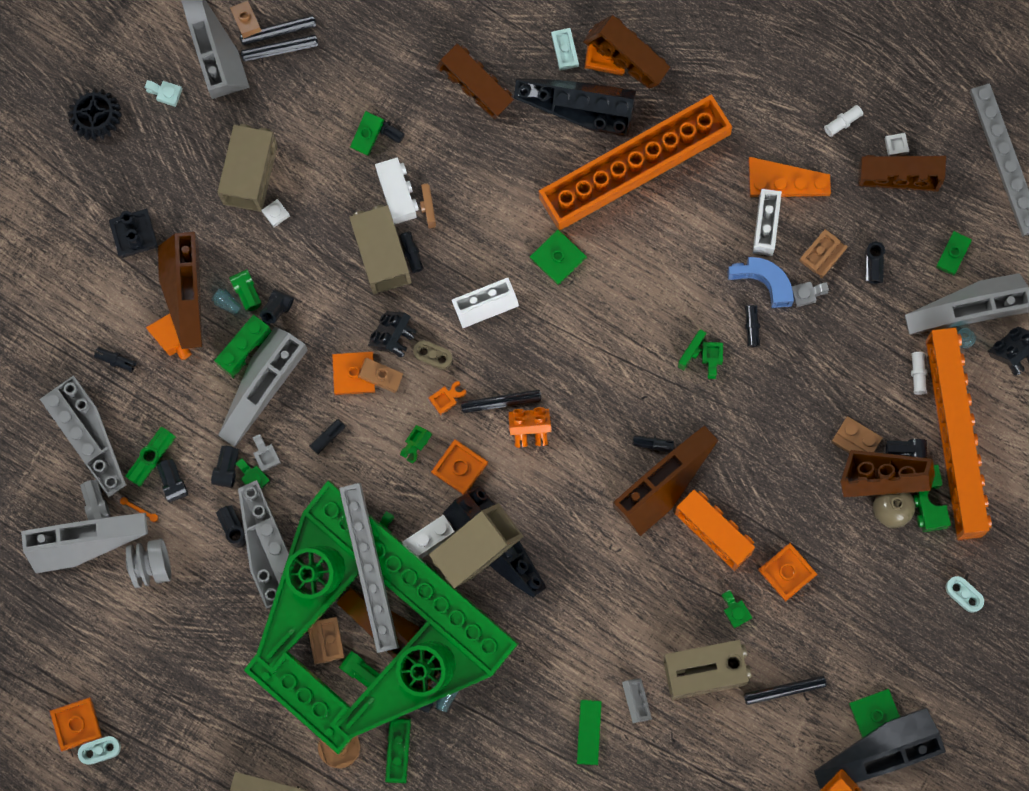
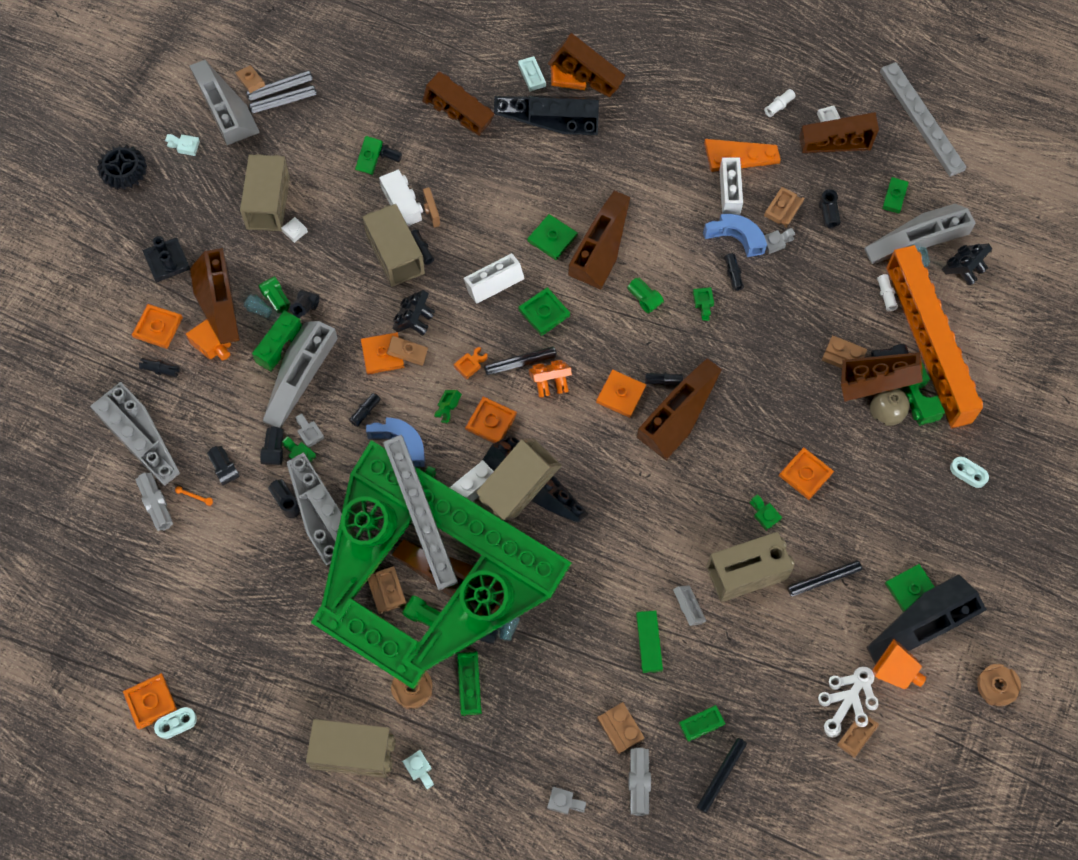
camera: 15 degrees left, 10 degrees down
(79, 542) = (139, 526): light grey wedge -> none
(117, 311) = (157, 326): none -> orange plate
(143, 468) = (194, 456): green piece -> none
(148, 563) = (207, 539): light grey wheel -> none
(372, 483) = (394, 428): none -> medium blue arch
(433, 355) = (453, 328): dark tan plate -> none
(535, 347) = (544, 311): none -> green plate
(604, 453) = (621, 393): none -> orange plate
(611, 273) = (601, 243): none -> reddish brown wedge
(635, 162) = (607, 152): orange brick -> none
(652, 347) = (648, 299): none -> green piece
(693, 350) = (685, 297): green plate -> none
(714, 529) = (734, 442): orange brick -> none

